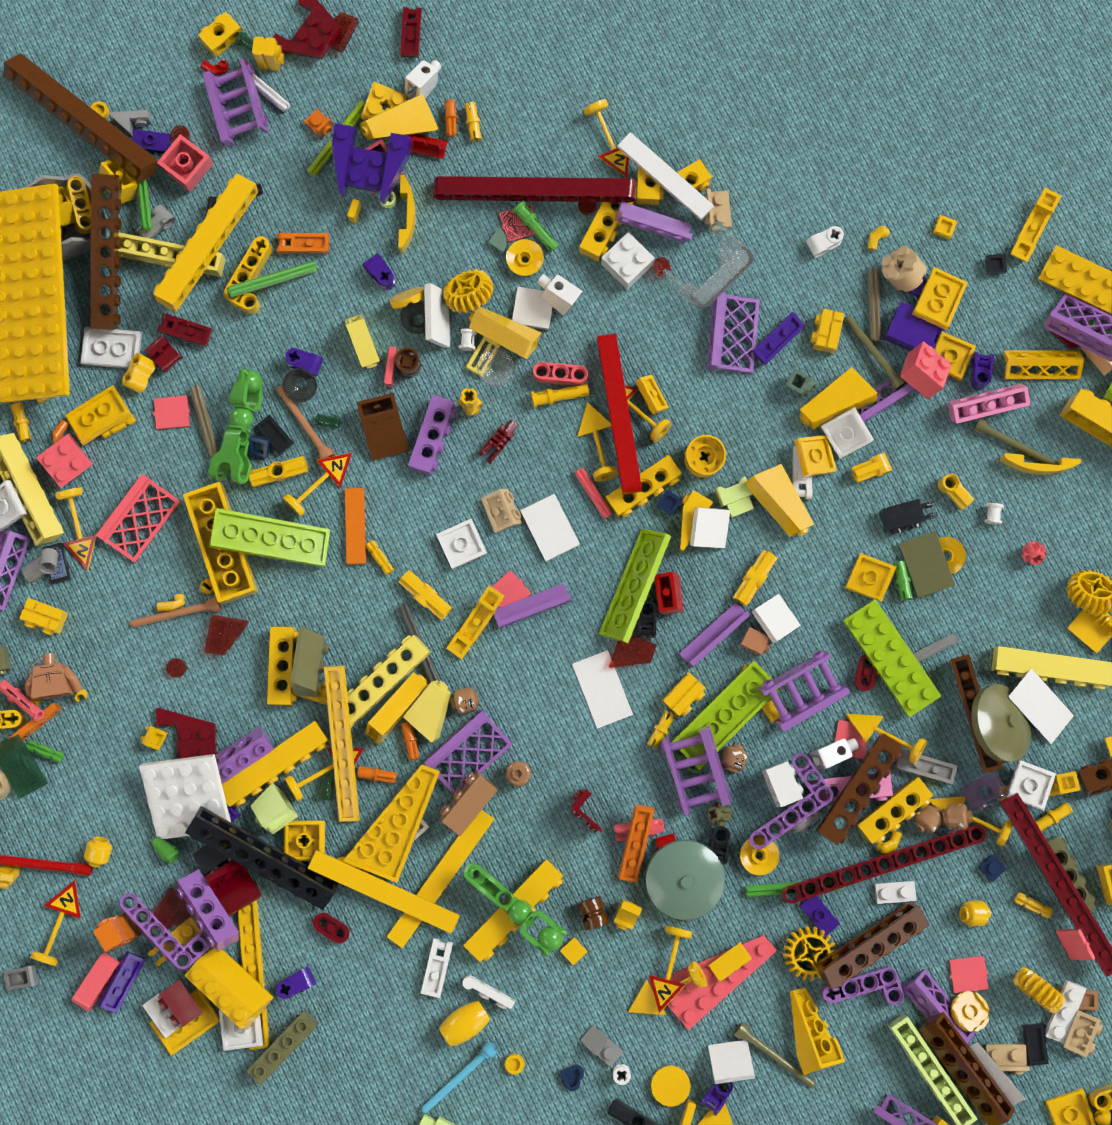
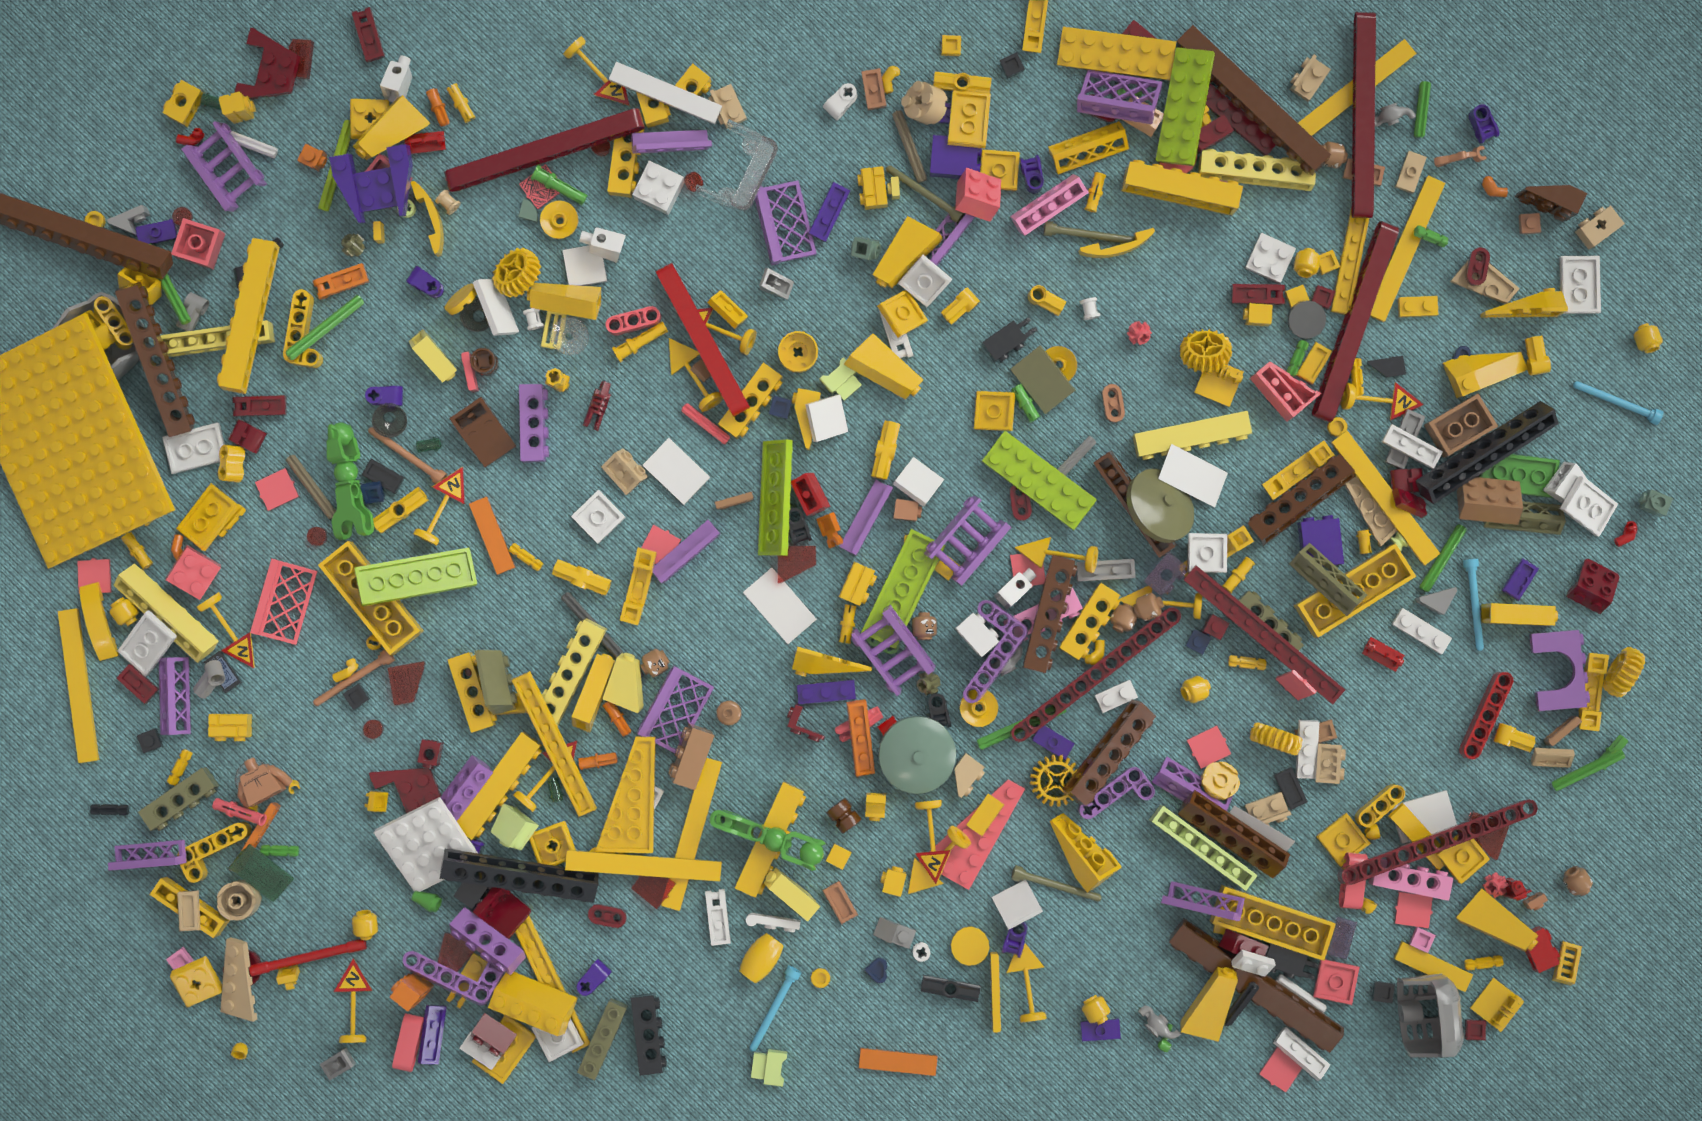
camera: 15 degrees left, 5 degrees up
(172, 631) = (356, 696): none -> black plate
(192, 468) = (317, 536): none -> clear red tile
(229, 706) = (436, 746): none -> dark red brick
(316, 1088) = (645, 1063): none -> black brick
(326, 214) = (352, 245): none -> olive gear
(385, 918) = (653, 889): none -> clear red piece
(428, 206) = (448, 202): none -> tan bush
(516, 971) = (791, 894): none -> light yellow slope
(559, 996) = (840, 902): none -> nougat tile
(595, 574) = (733, 501): none -> medium nougat tile
(607, 442) = (701, 370): none -> medium nougat tile
(618, 787) = (826, 692): none -> dark purple plate
(618, 994) = (893, 880): none -> yellow brick
(619, 756) = (817, 663): none -> yellow wedge
(676, 631) = (829, 526): none -> orange plate
(705, 386) = (776, 284): none -> light grey slope
(724, 915) = (966, 772): none -> tan slope
(847, 337) = (893, 188): none -> light yellow plate
(859, 241) = (873, 89): none -> nougat plate
(933, 258) = (949, 81): none -> yellow piece
(987, 611) = (1115, 403): none -> nougat plate
(1014, 859) = (1215, 627): none -> dark red brick
(1041, 398) = (1099, 179): none -> yellow pin

